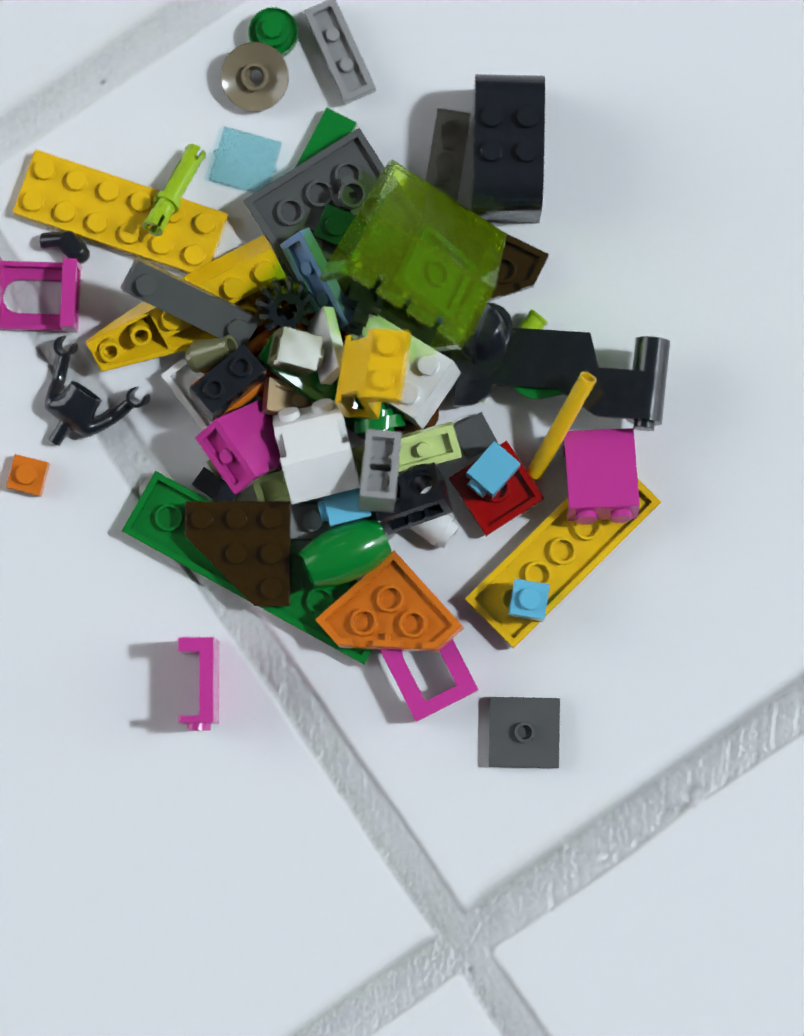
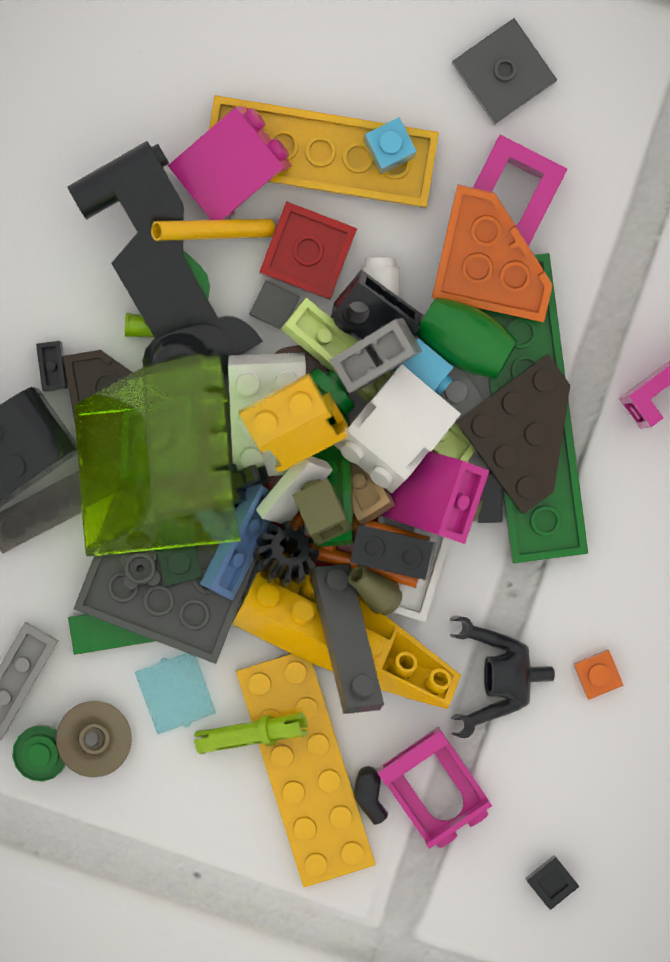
camera: 125 degrees left, 5 degrees up
(492, 471) = (298, 262): medium azure brick -> none
(548, 241) = (51, 366): none -> black piece

